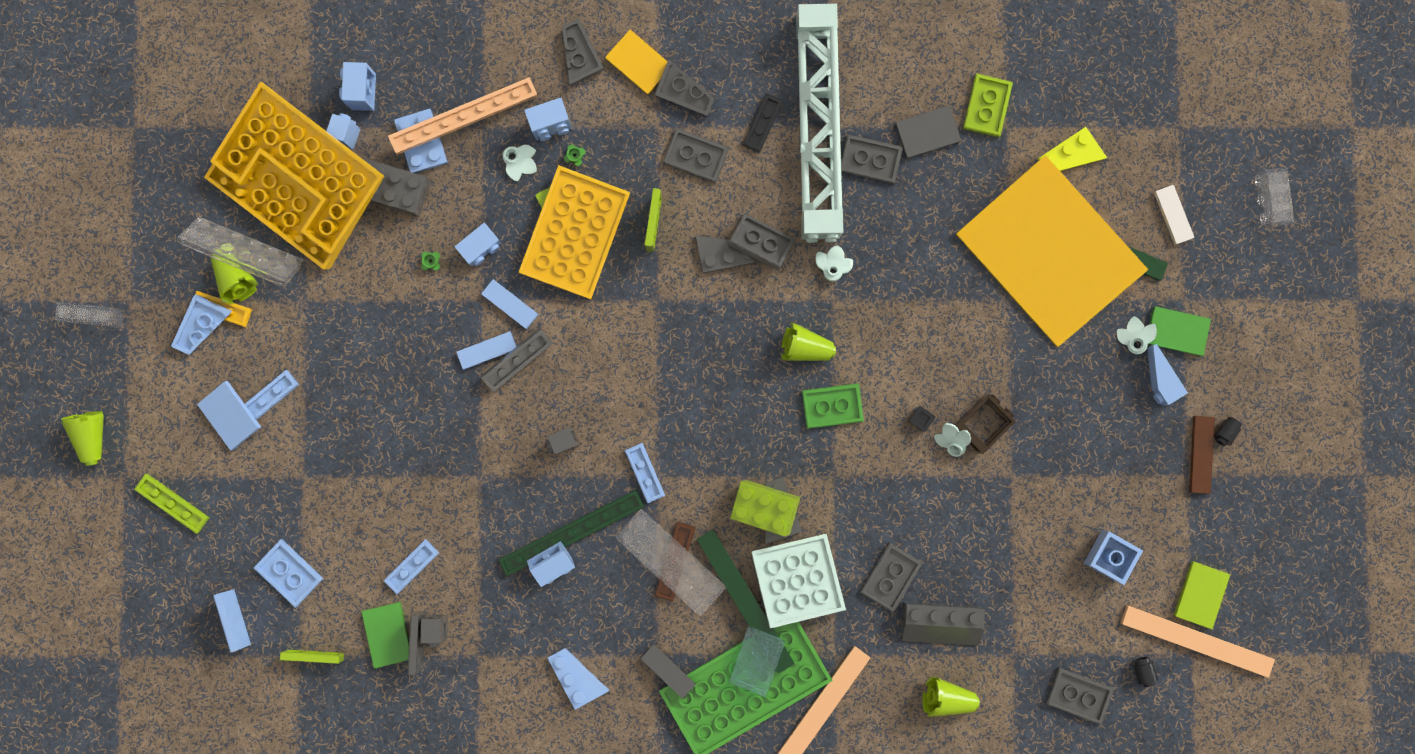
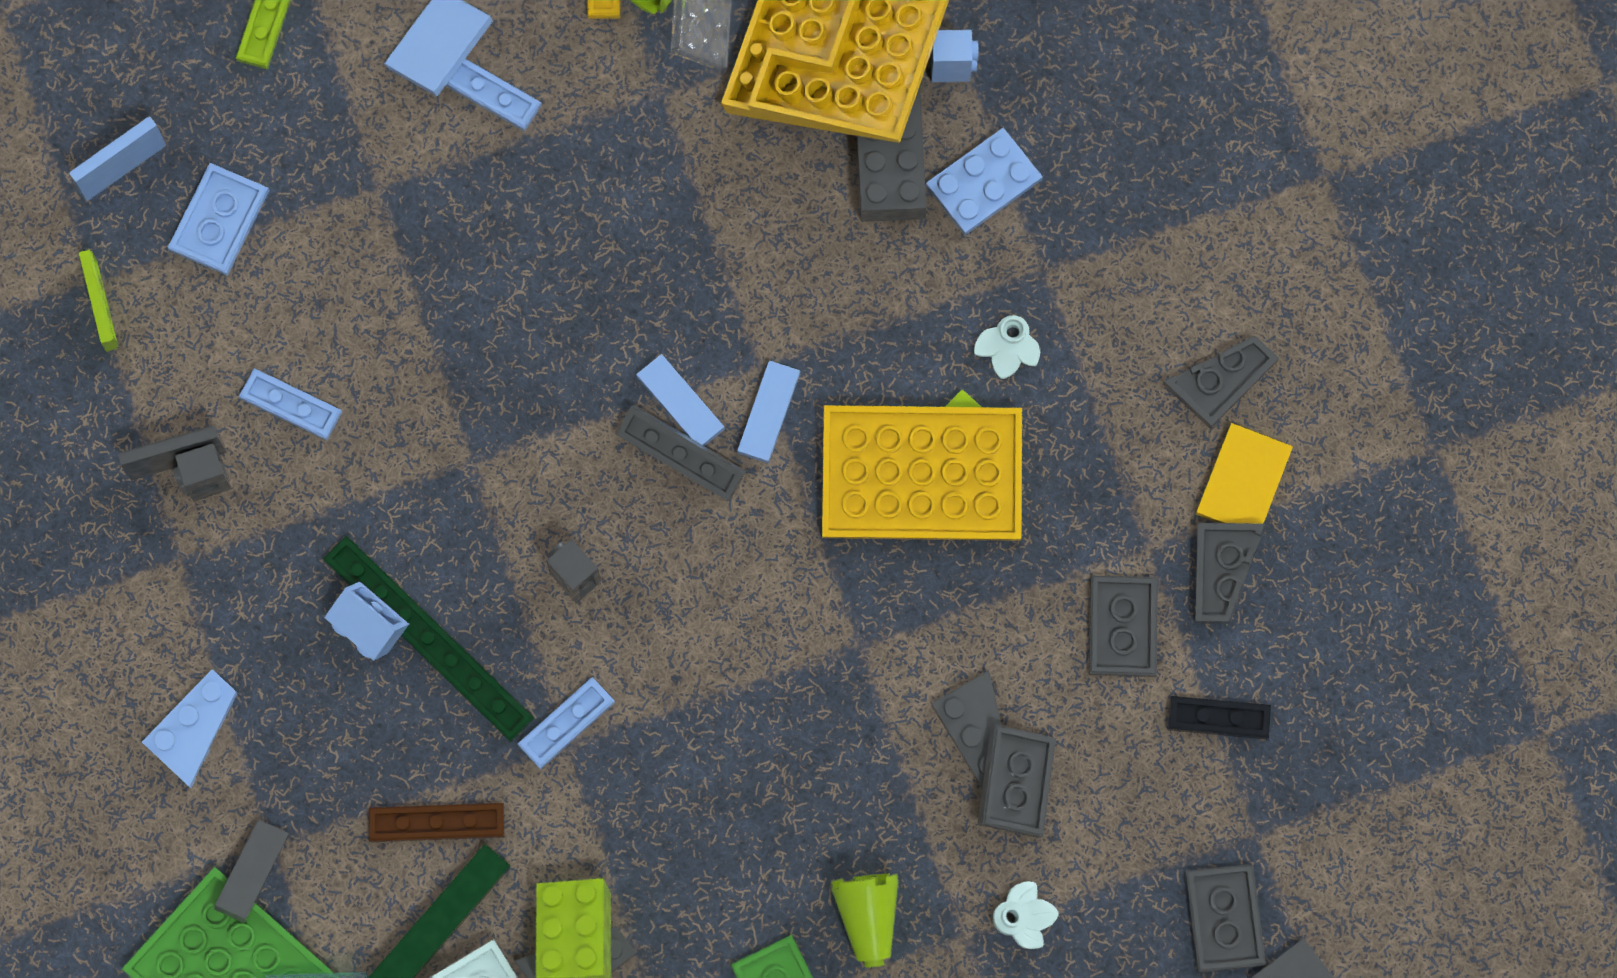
camera: 75 degrees right, 10 degrees down
(358, 86) = (1033, 53): light blue brick -> none
(386, 634) = (169, 402): bright green tile -> none
(435, 261) = (794, 254): bright green plate -> none
(462, 116) = (1048, 232): light nougat plate -> none
(478, 245) = (846, 328): light blue brick -> none
(548, 119) = (1090, 367): light blue brick -> none
(574, 150) = (1051, 421): bright green plate -> none
(653, 220) = (986, 590): lime tile -> none
(670, 562) = (432, 814): clear plate -> none
(815, 23) = (1416, 742): light aqua piece -> none

